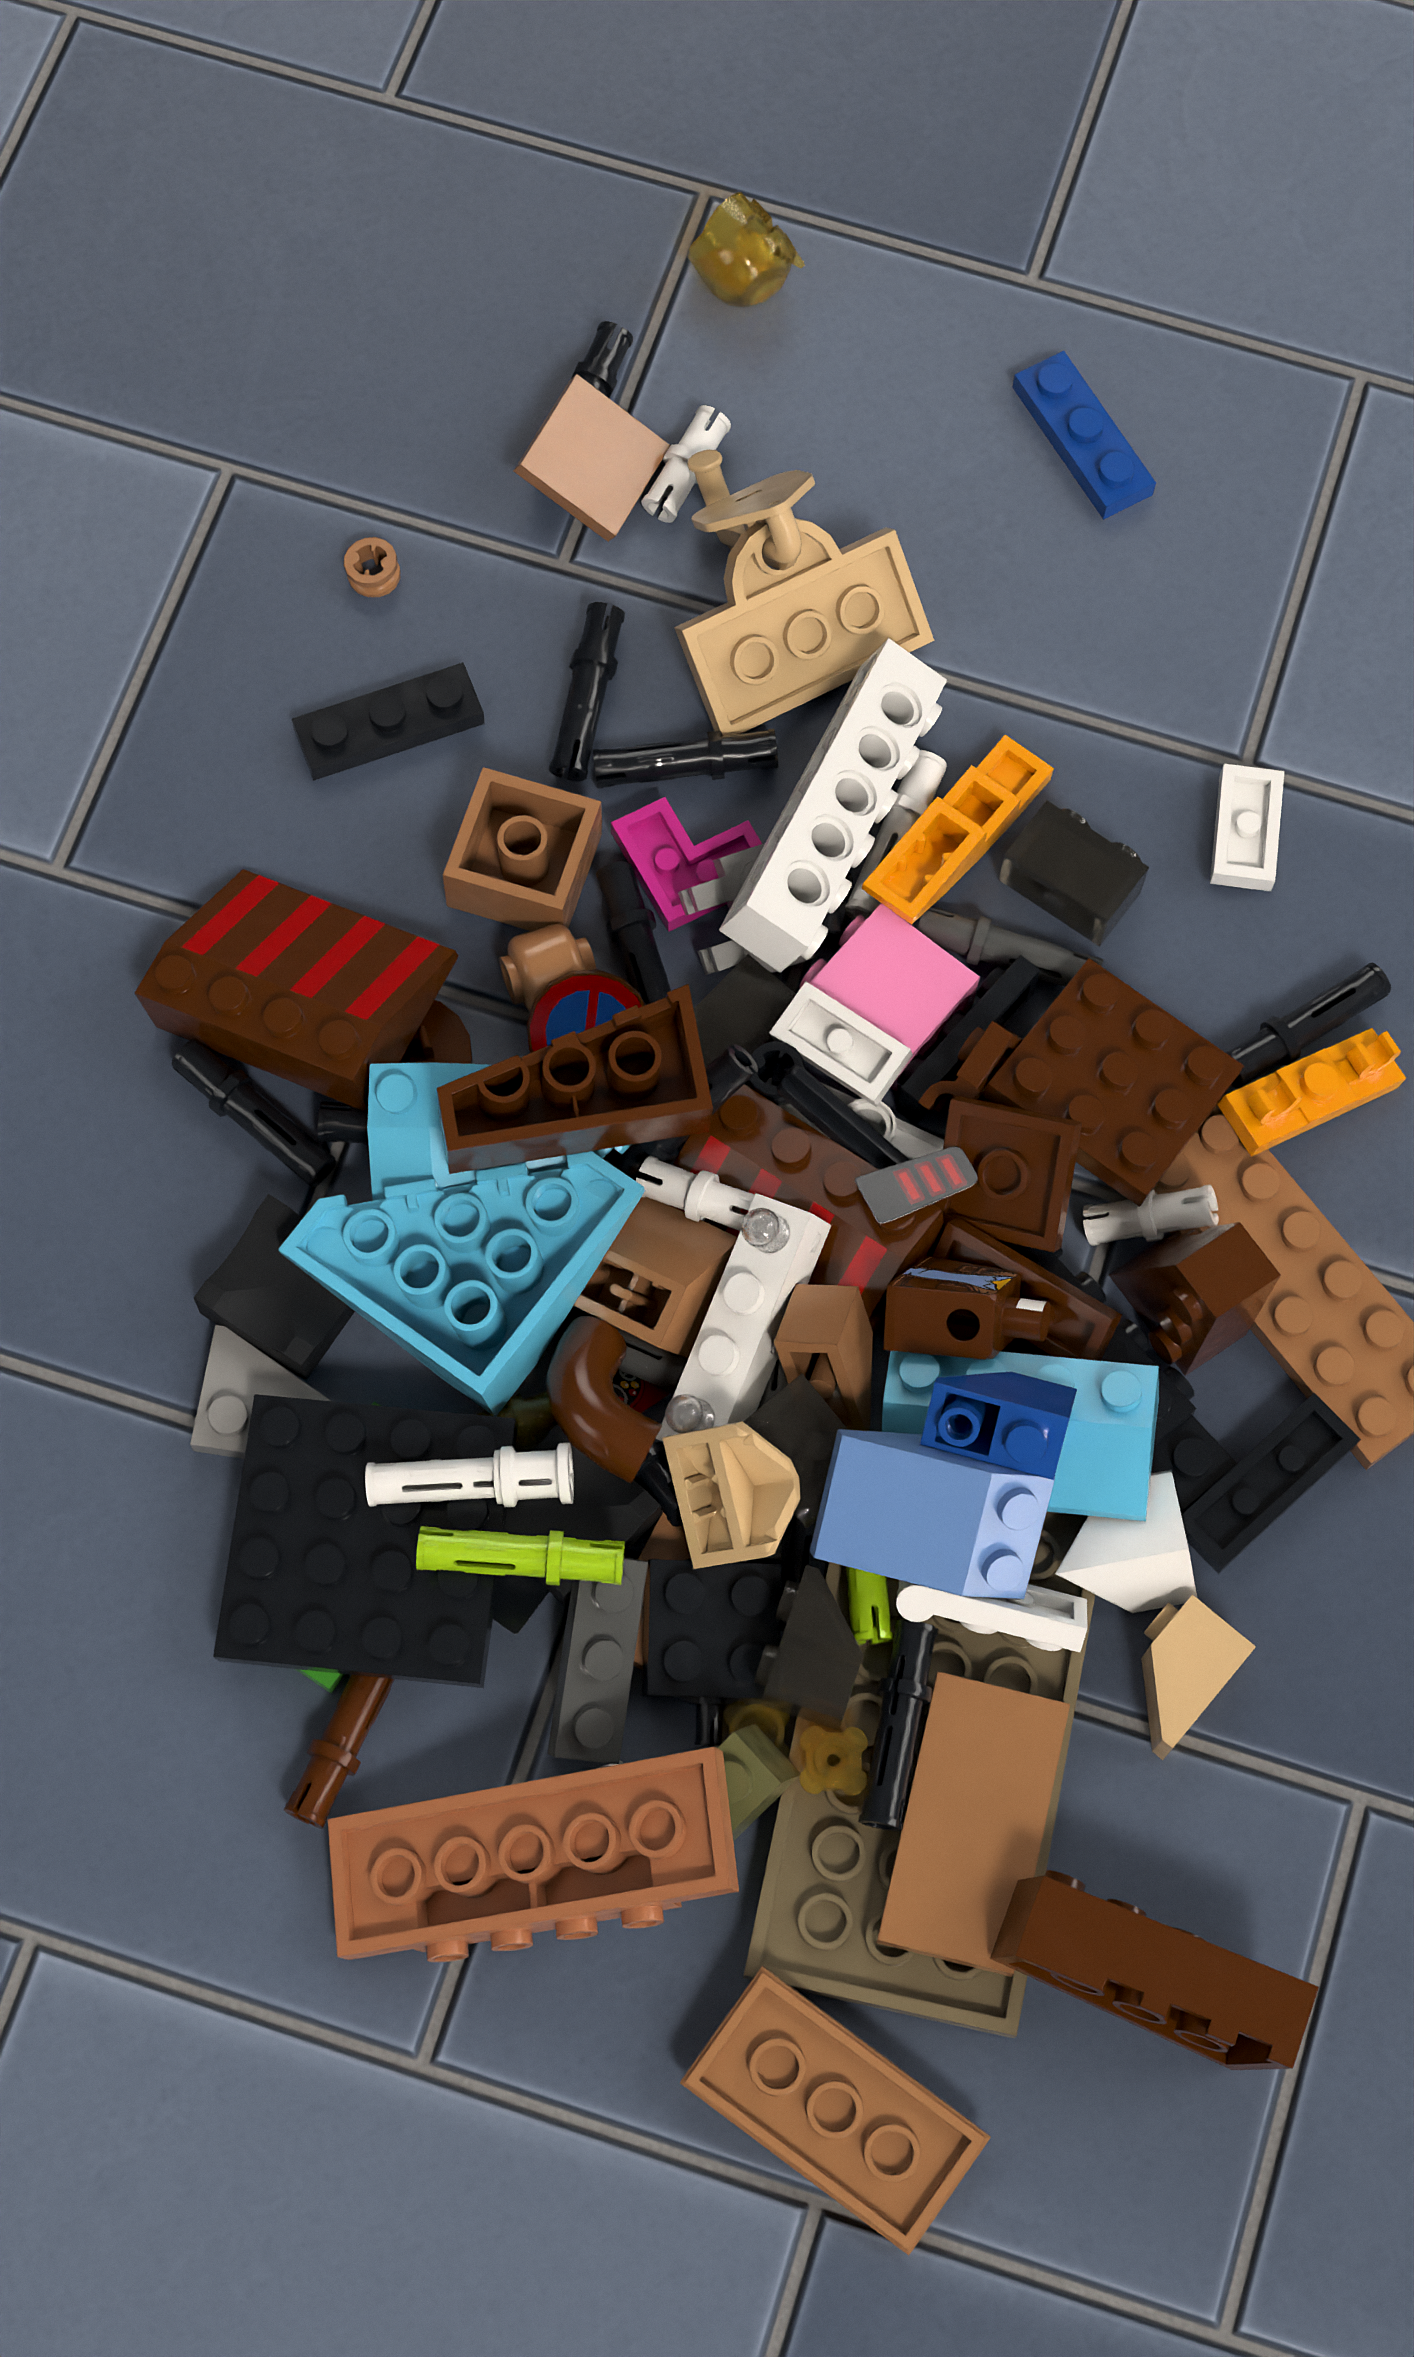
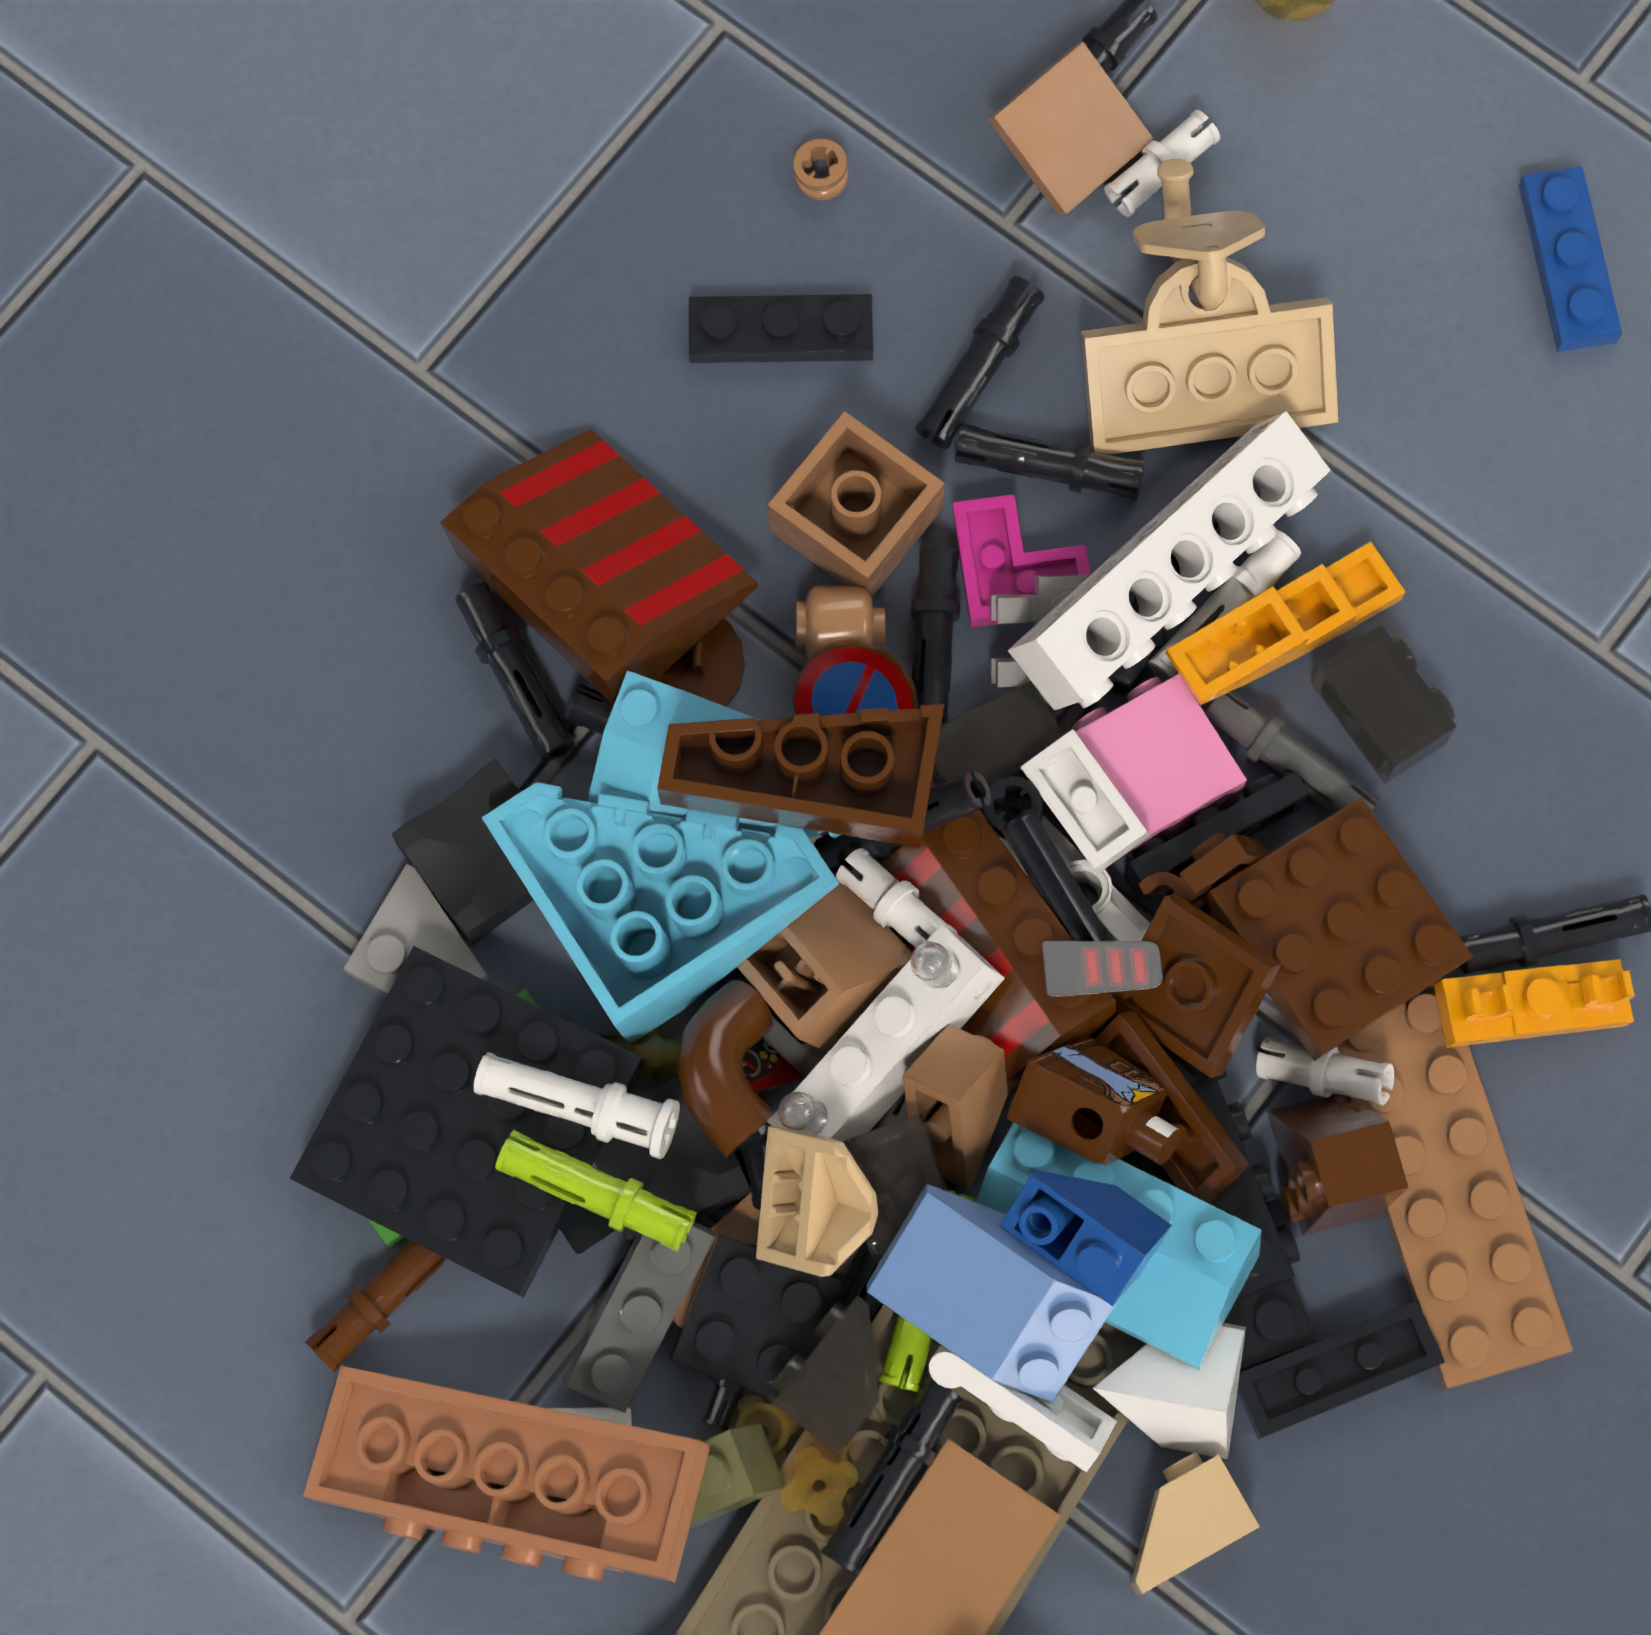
camera: 25 degrees right, 5 degrees up
(1247, 827) = (1575, 715): white plate -> none

